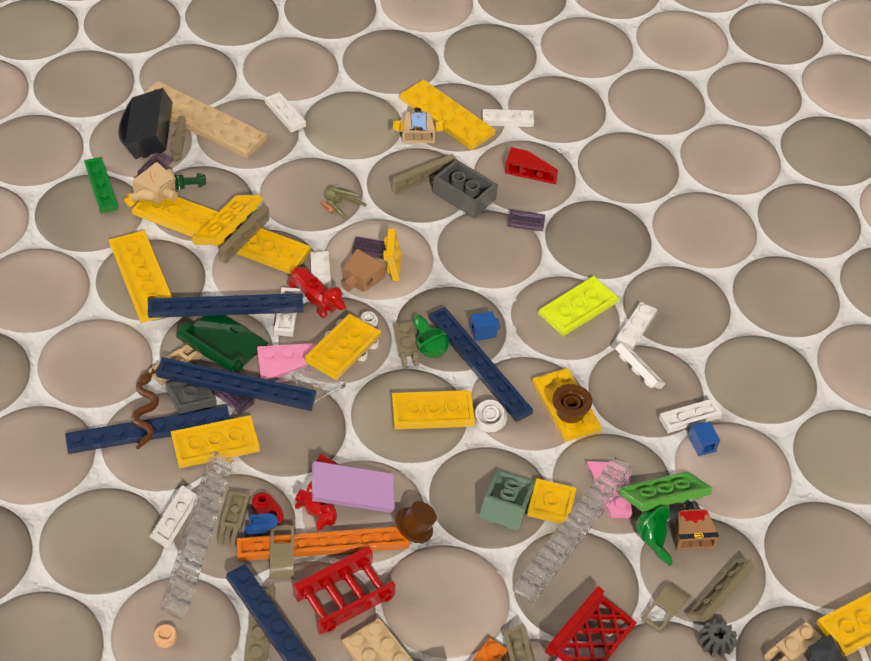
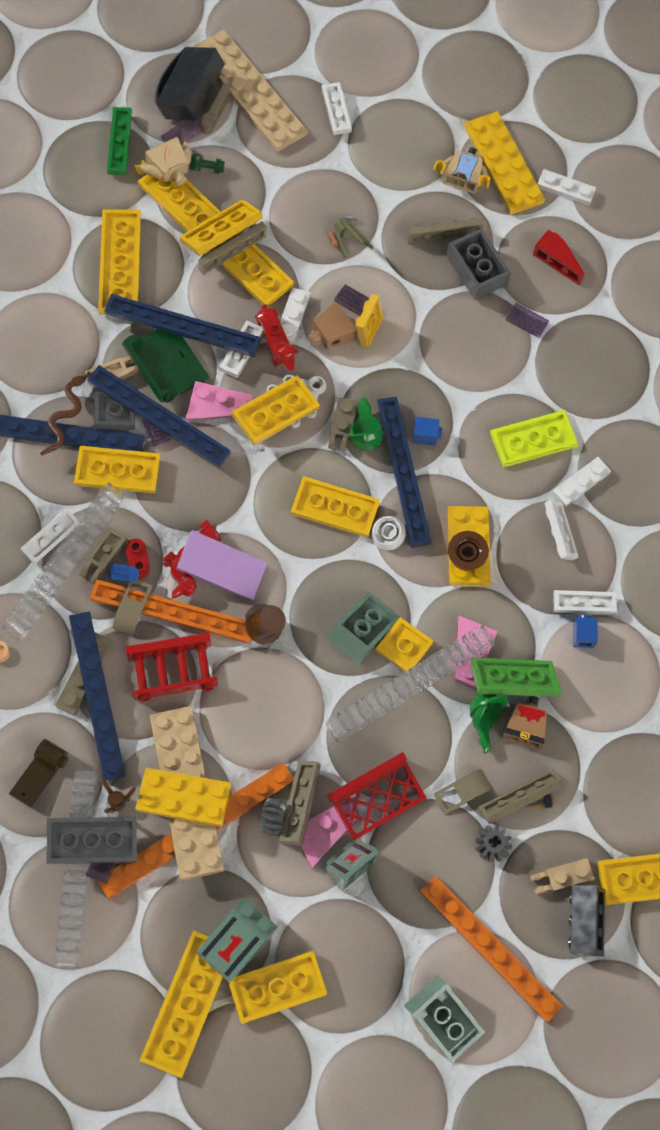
camera: 20 degrees right, 20 degrees up
(746, 589) = (547, 802): none -> black piece

